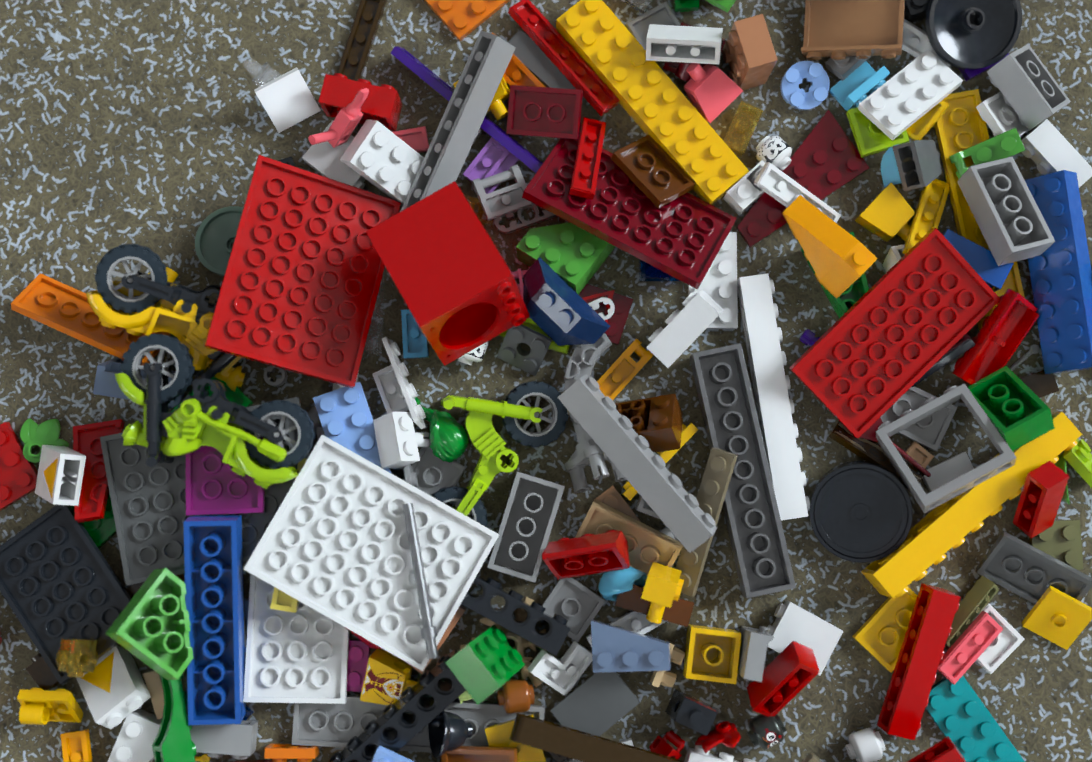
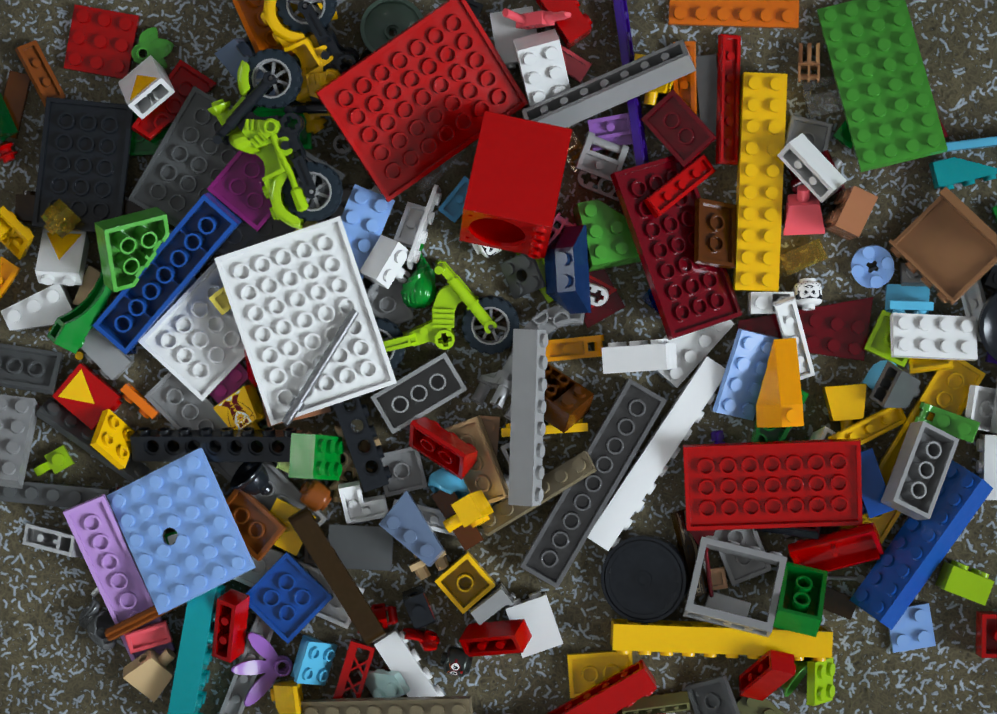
camera: 45 degrees right, 5 degrees up
(784, 265) = (744, 374): none -> light blue plate

